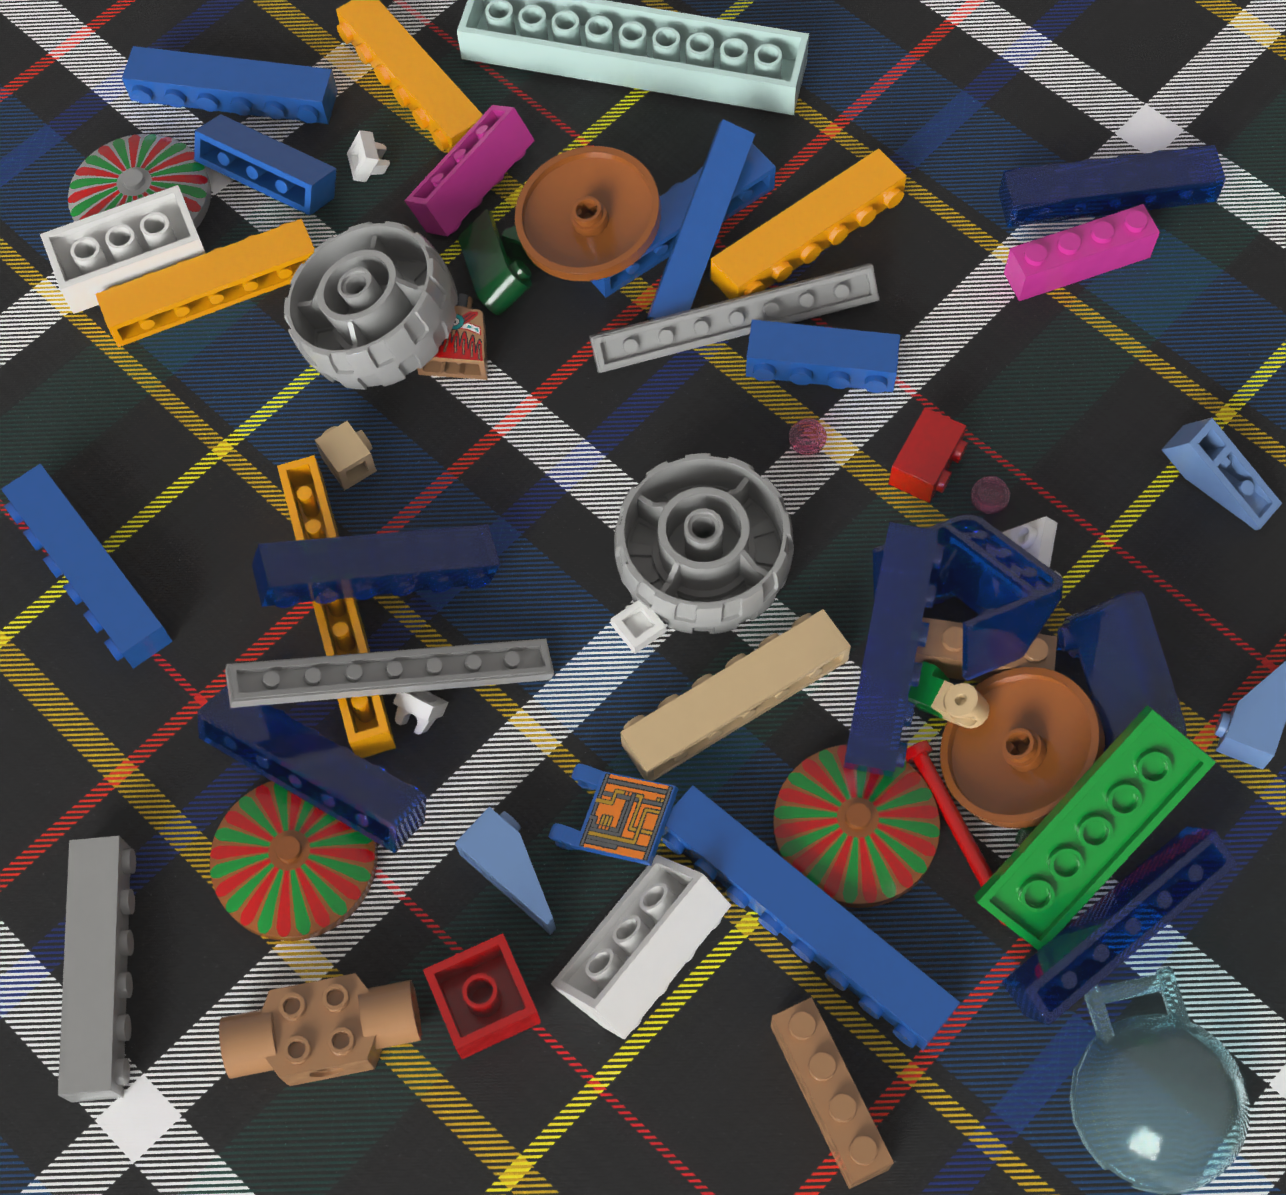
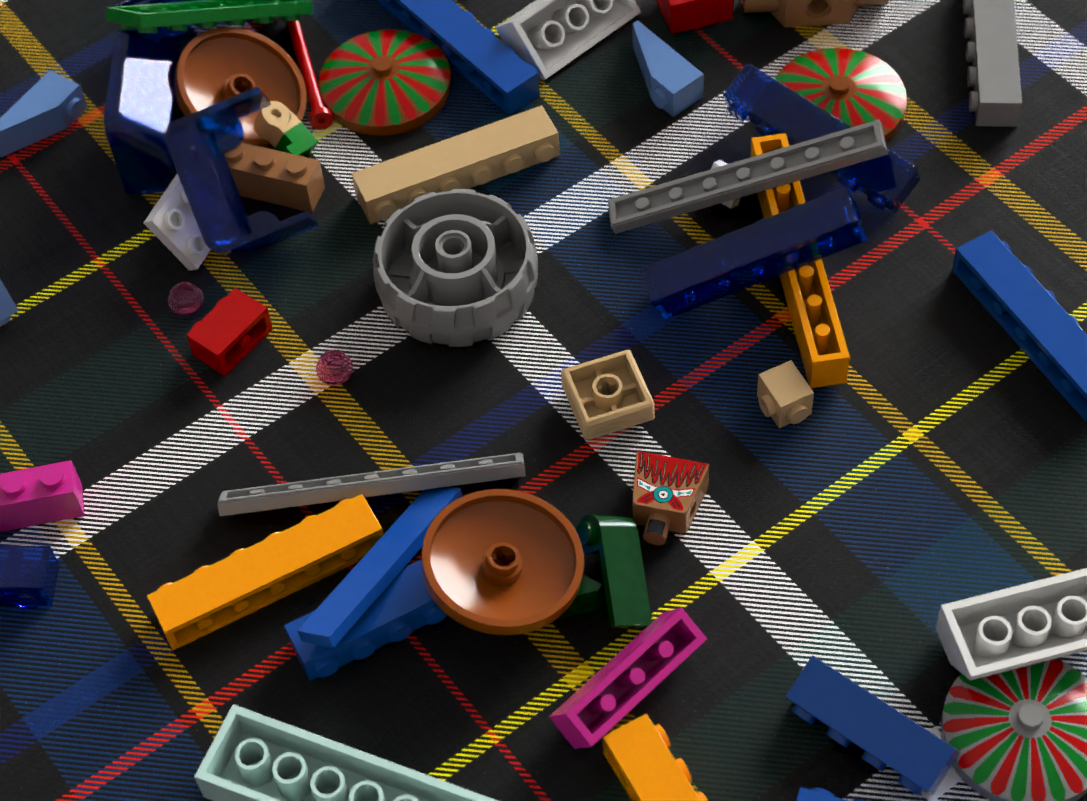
camera: 170 degrees left, 10 degrees down
(205, 283) = (912, 596): light orange brick -> none
(366, 157) = (753, 728): white tile -> none
(371, 305) = (749, 504): light grey wheel -> none
(526, 409) = (627, 397): none -> tan brick
(622, 818) = (570, 86): flag -> none
(638, 626) = (533, 213): white tile -> none
(822, 356) = (296, 433): blue brick -> none
(891, 650) = (317, 144): clear blue brick -> none

